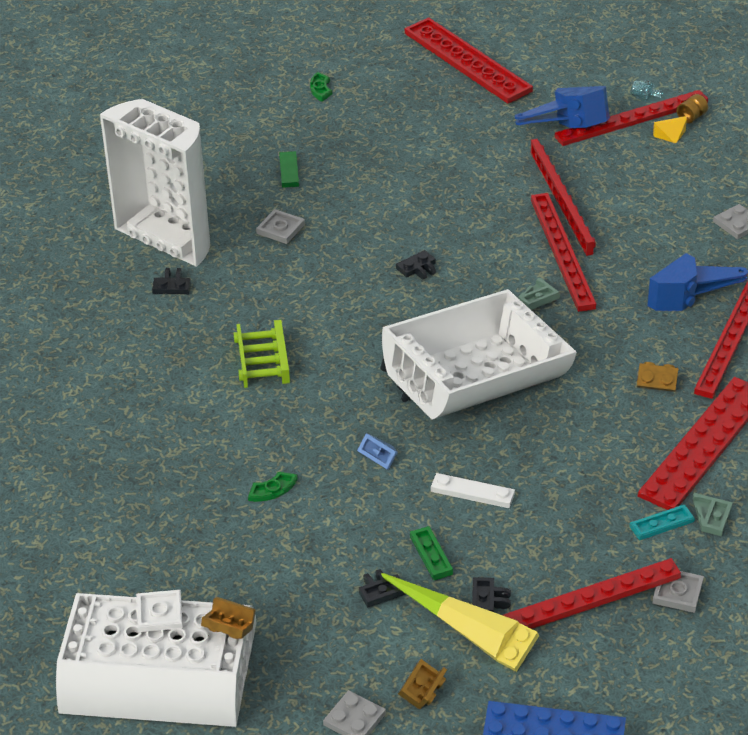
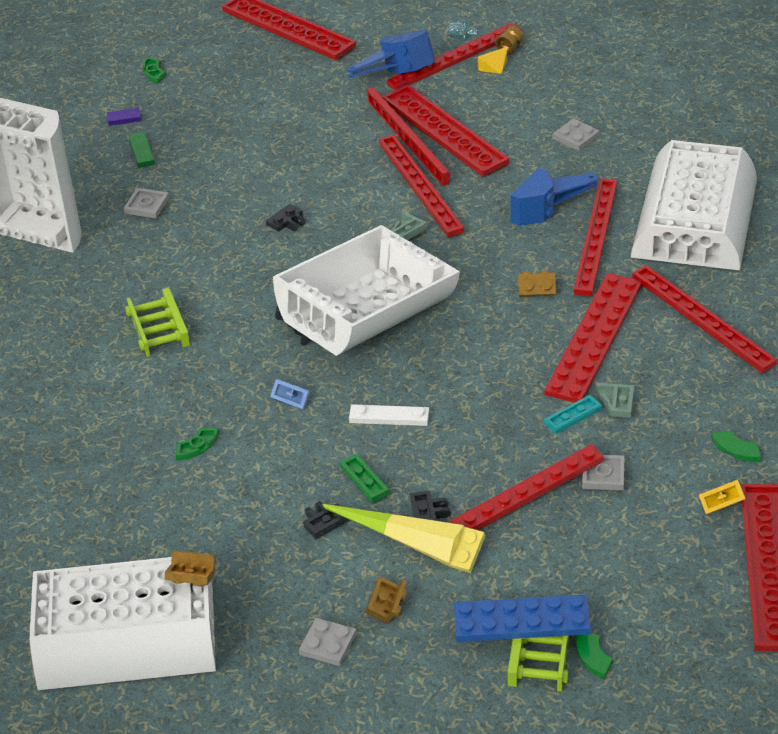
camera: 10 degrees left, 0 degrees up
(159, 611) = (119, 573): white tile -> none
(171, 285) = (53, 273): black hinge -> none
(279, 131) = (123, 116): none -> dark purple tile
(603, 196) = (446, 130): none -> red plate

